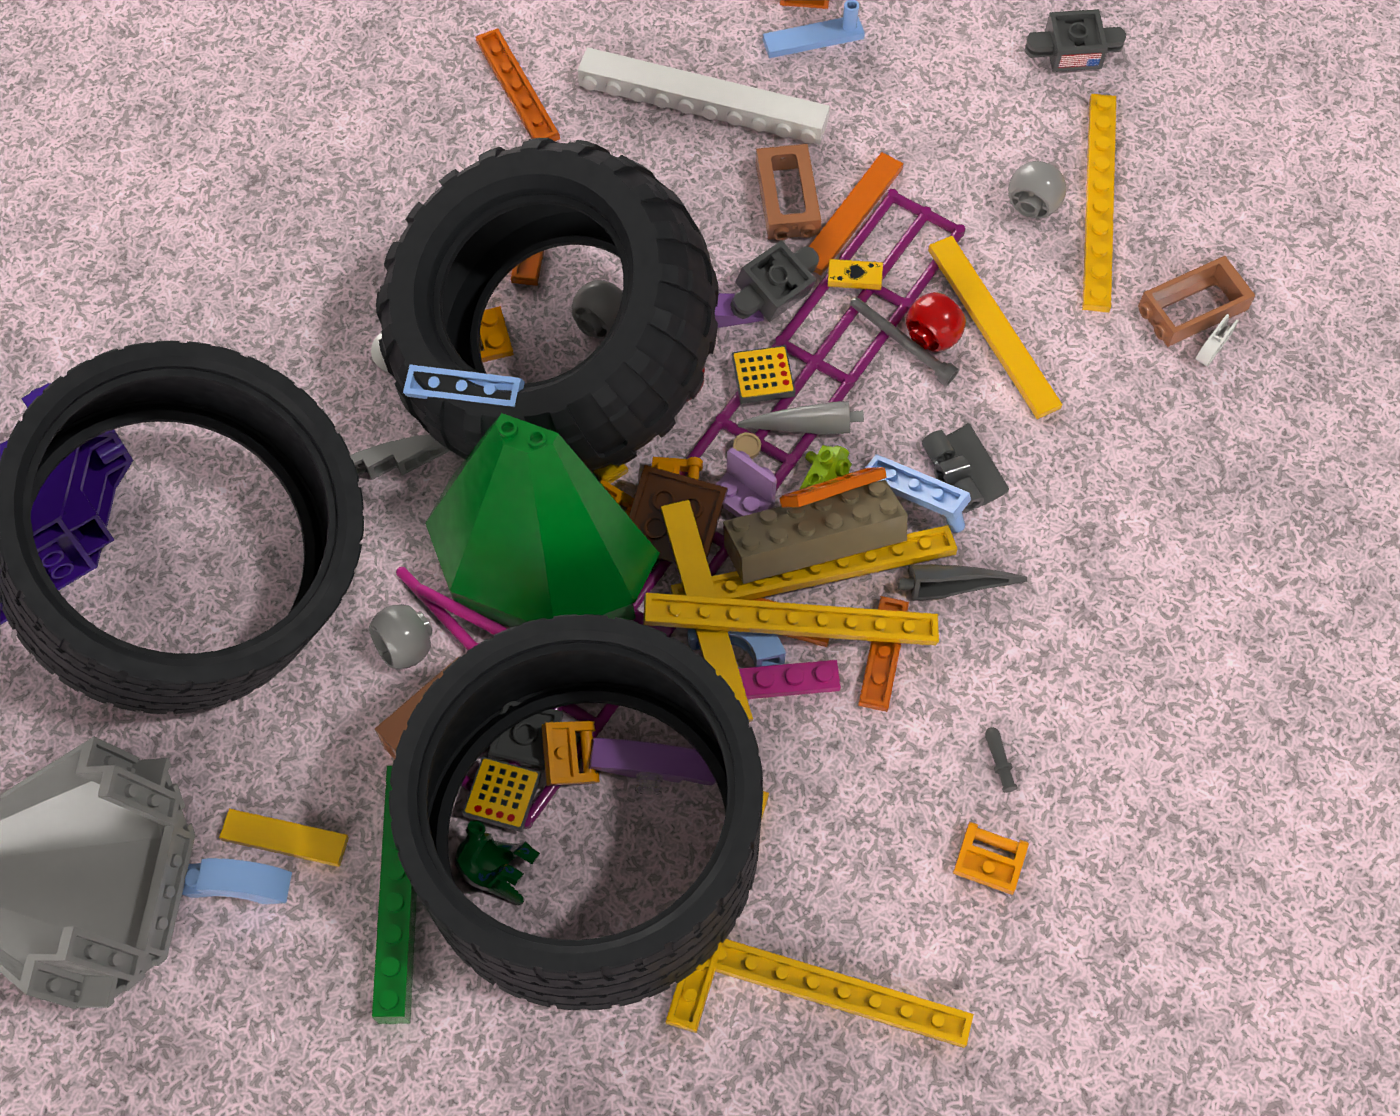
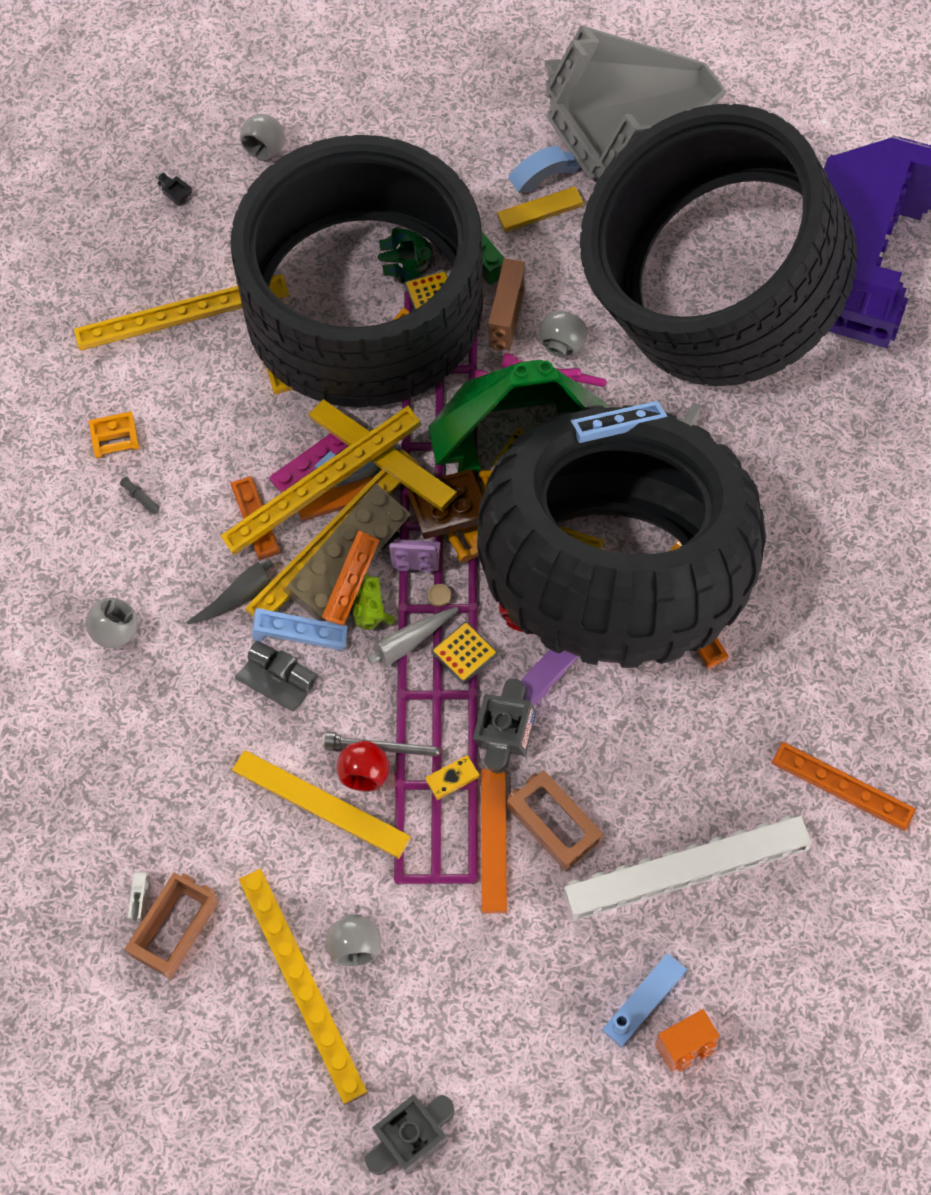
camera: 150 degrees right, 0 degrees up
(1105, 600) = (111, 622): none -> light grey wheel

